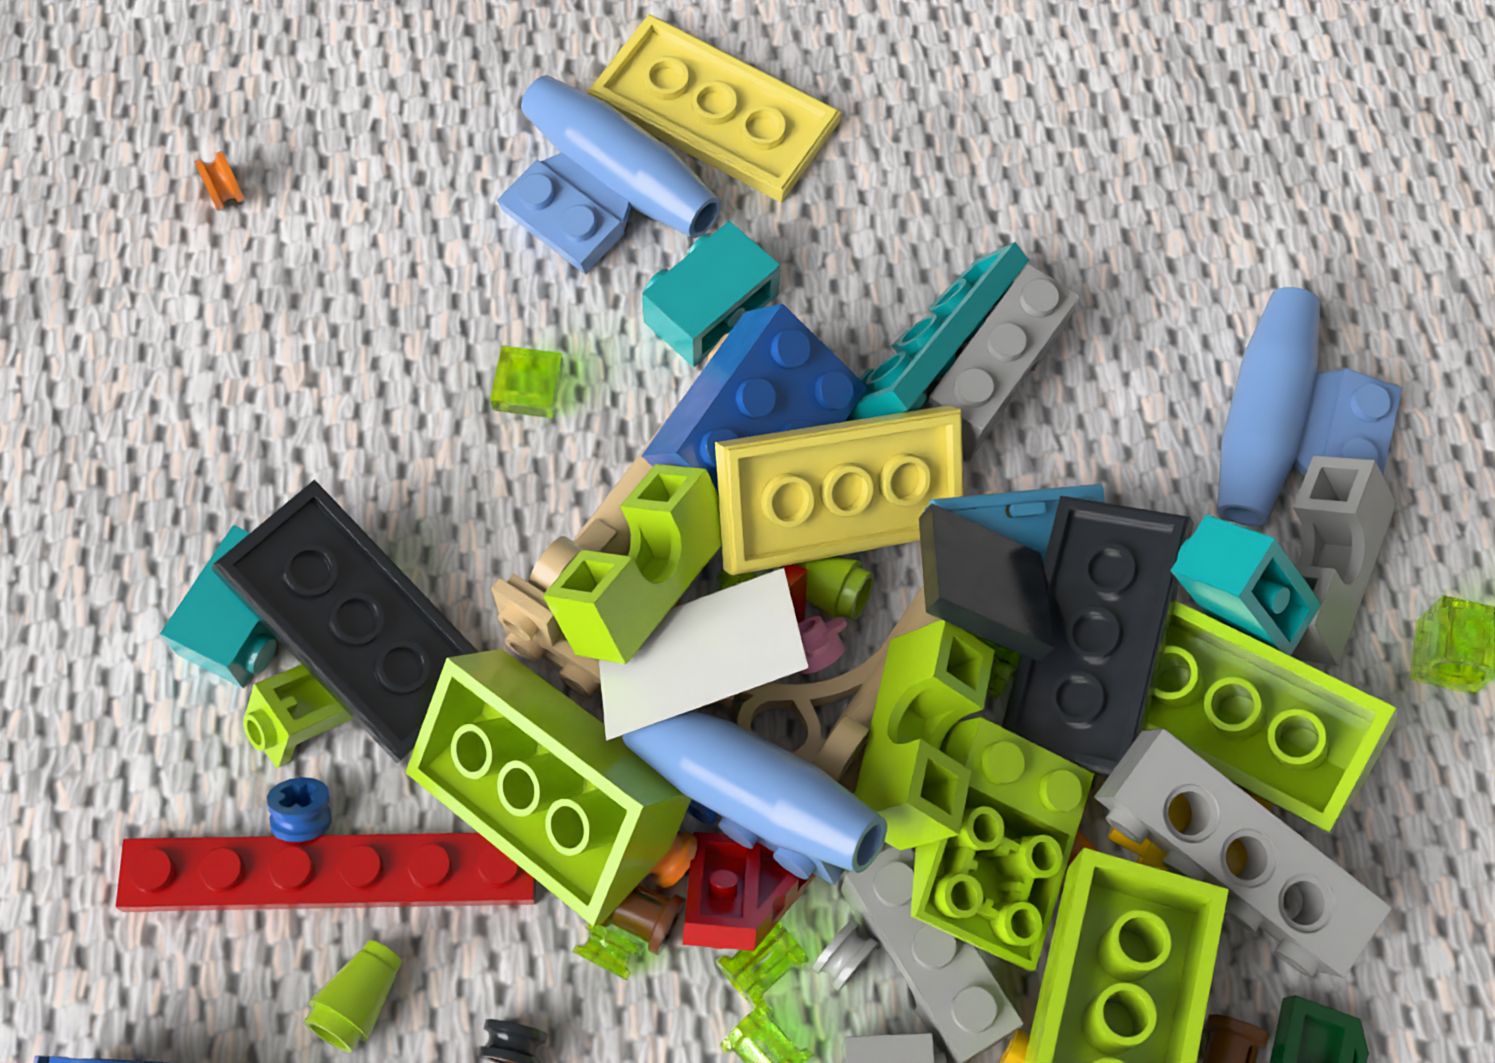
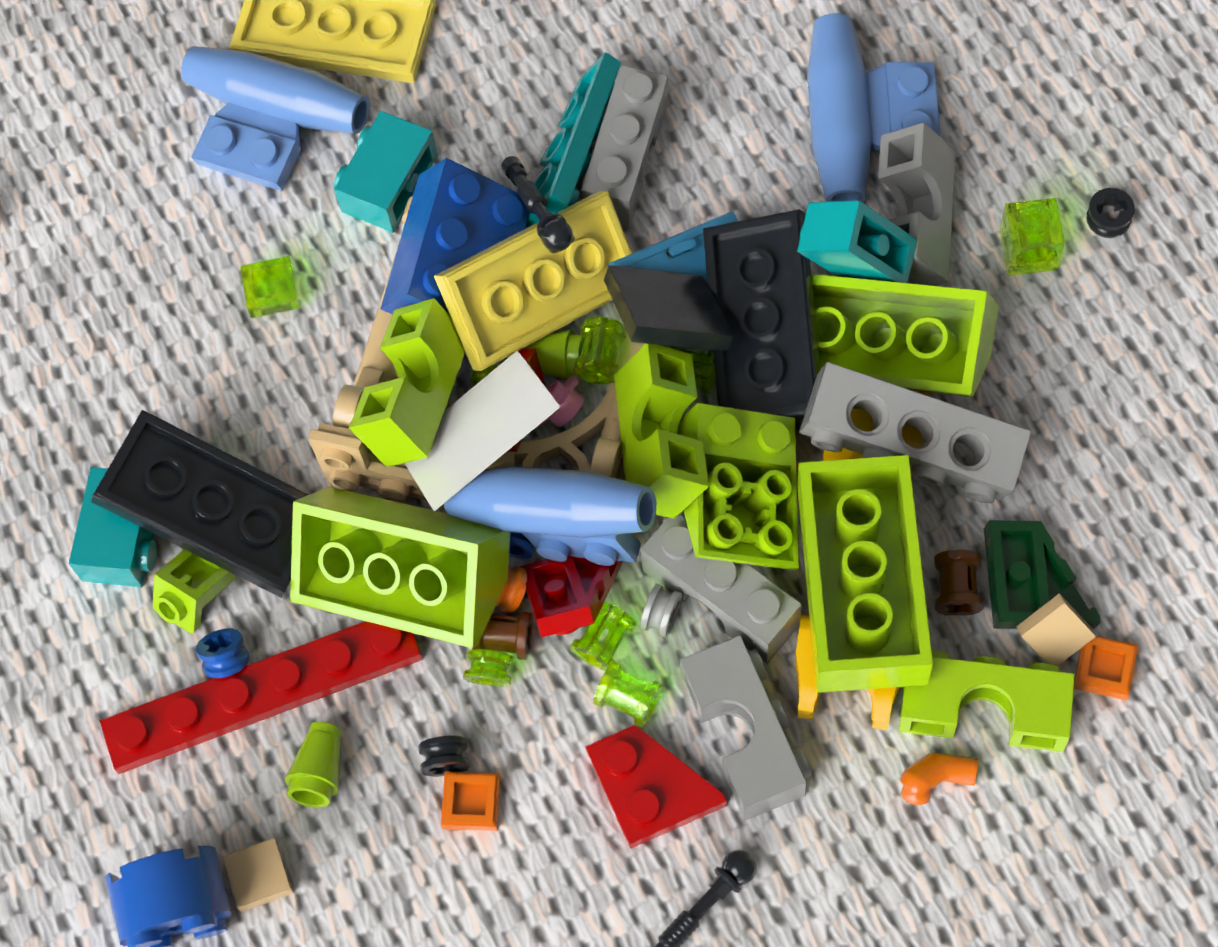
camera: 10 degrees left, 0 degrees up
(878, 434) = (552, 227): none -> black piece
(884, 600) = (599, 350): none -> clear neon green bush

